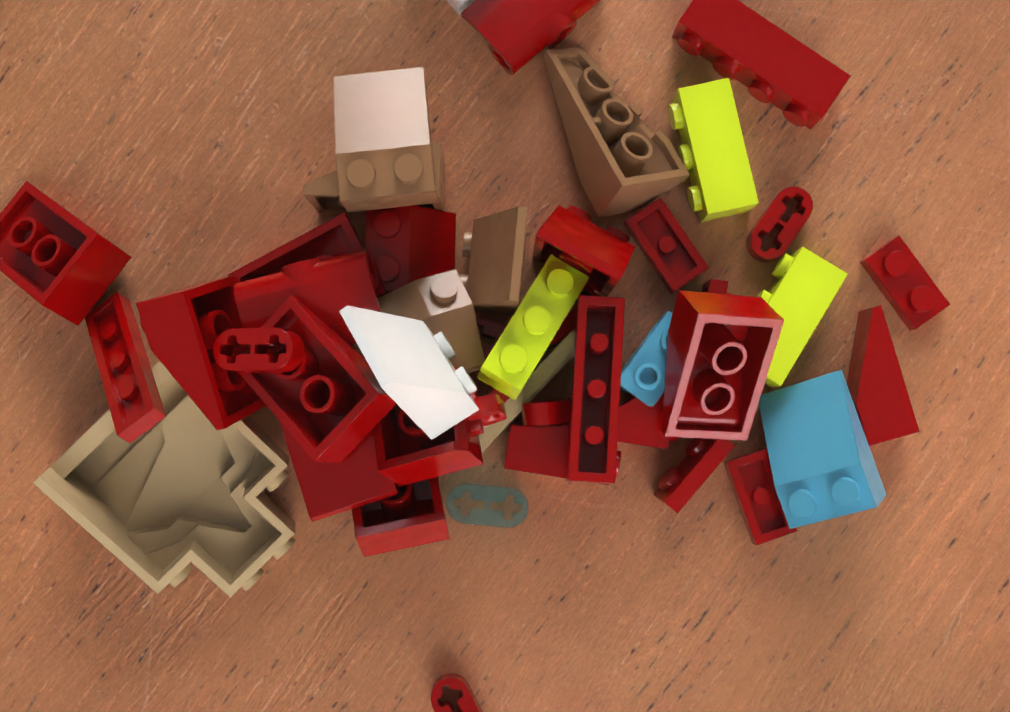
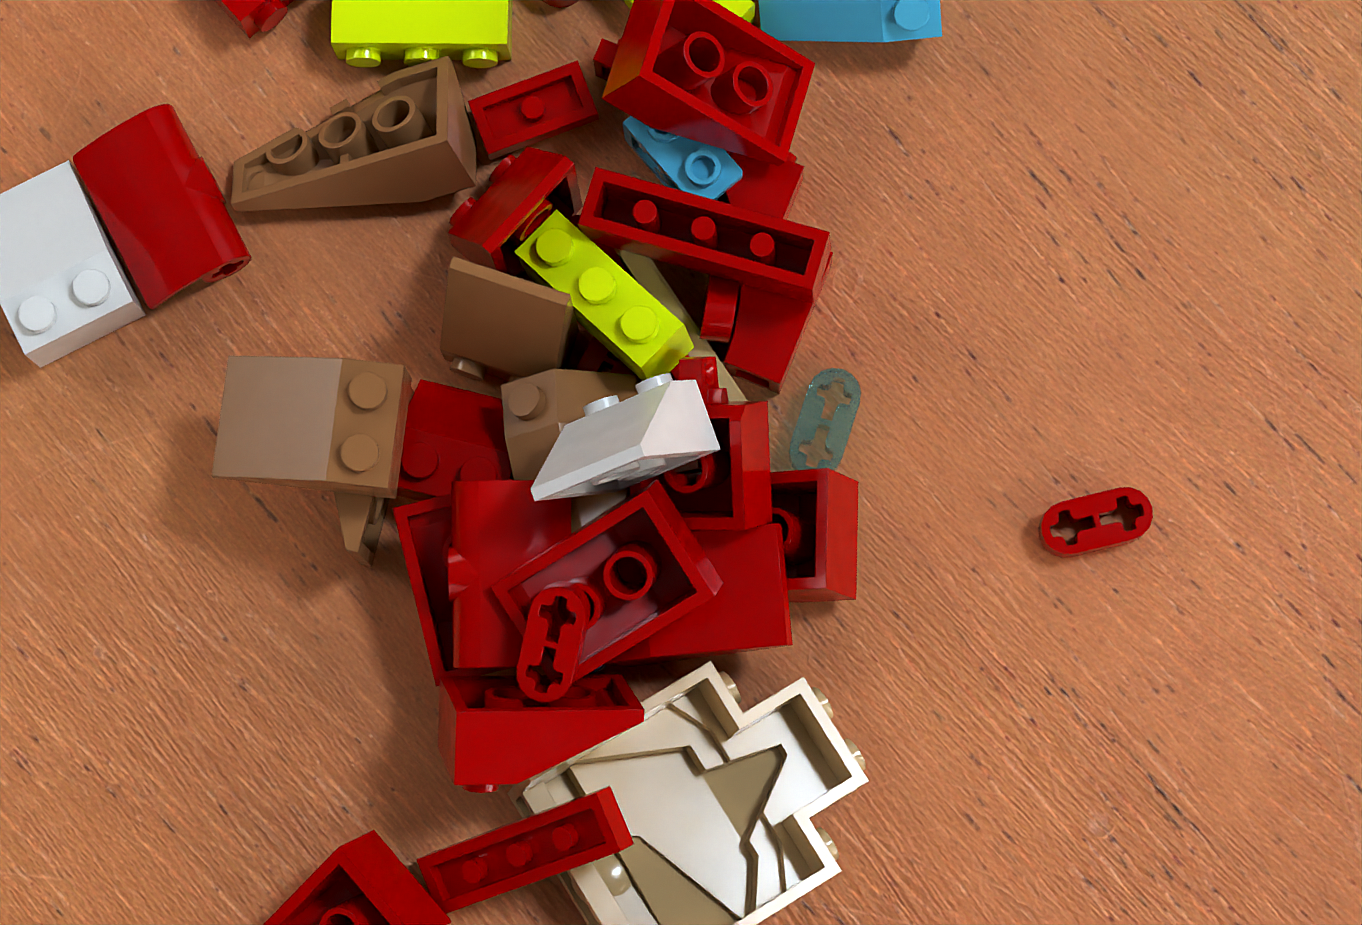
camera: 70 degrees left, 5 degrees down
(682, 482) = (851, 159): red plate -> none
(757, 496) = (893, 68): red plate -> none

